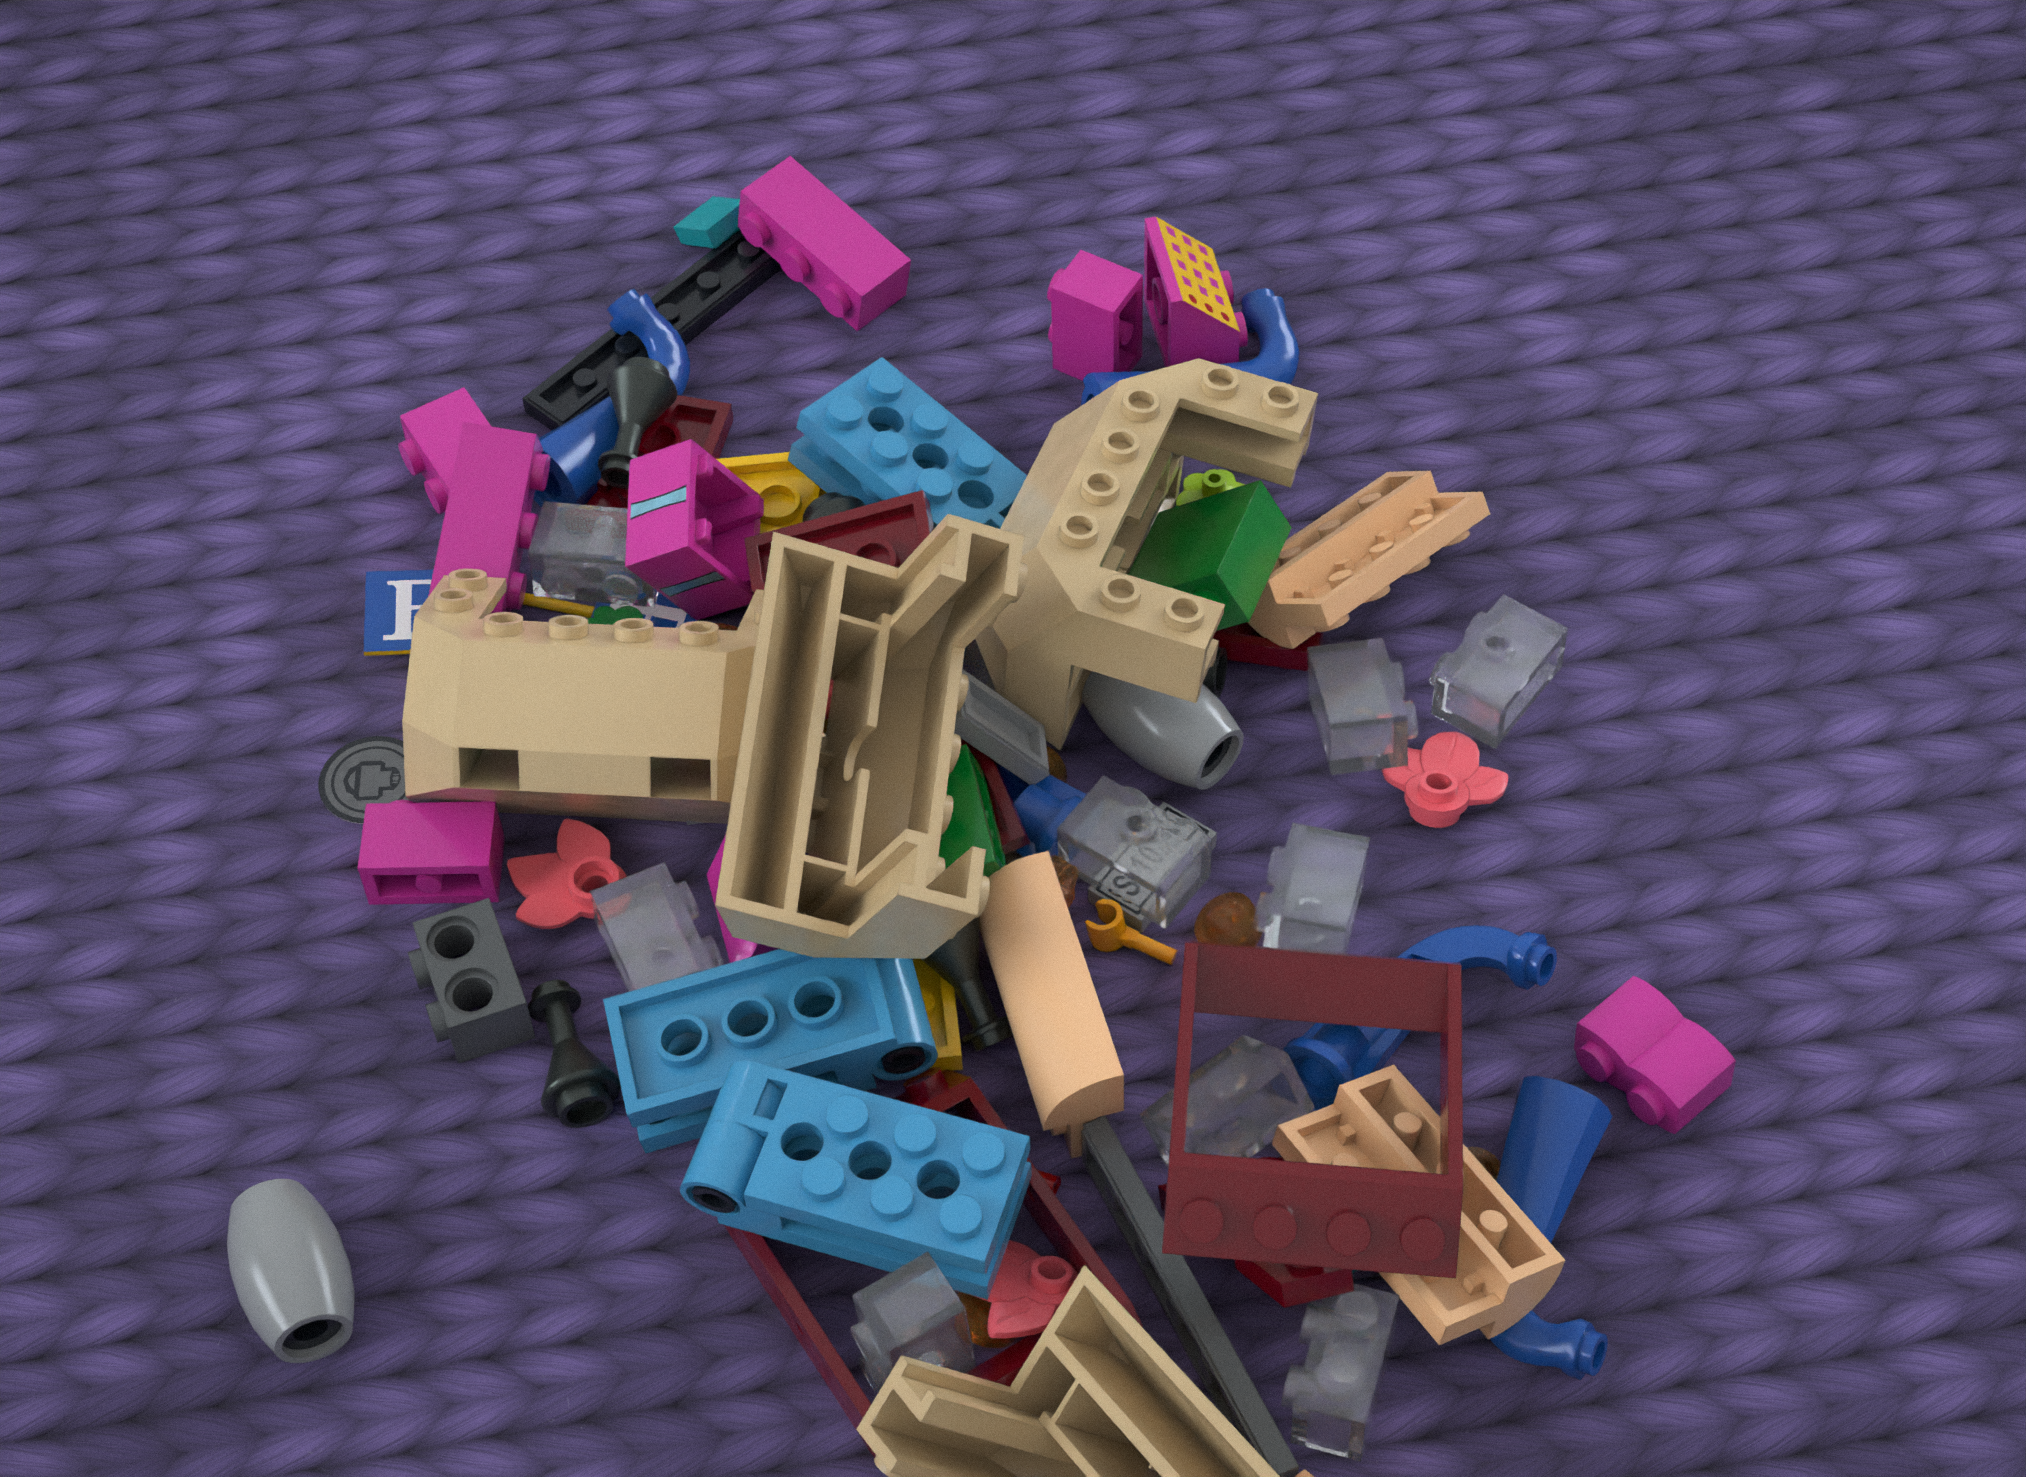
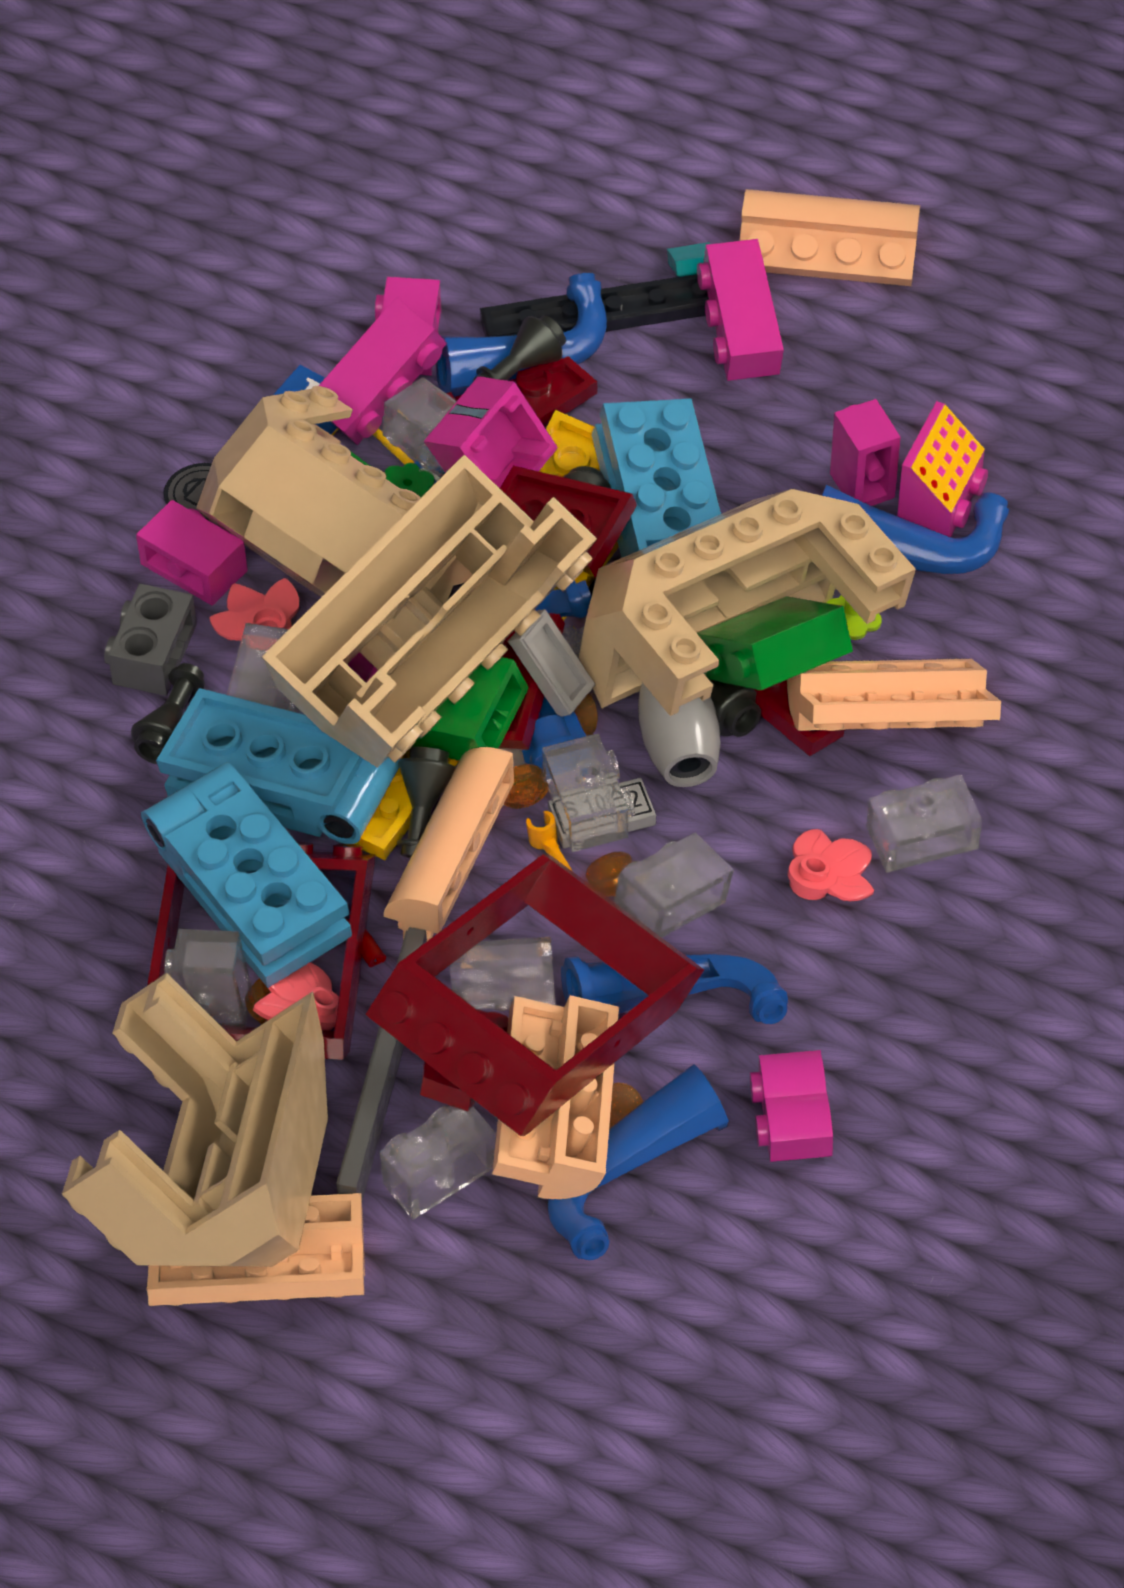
camera: 35 degrees right, 0 degrees up
(843, 118) = (832, 236): none -> light nougat brick
(1360, 706) = (808, 789): clear brick -> none

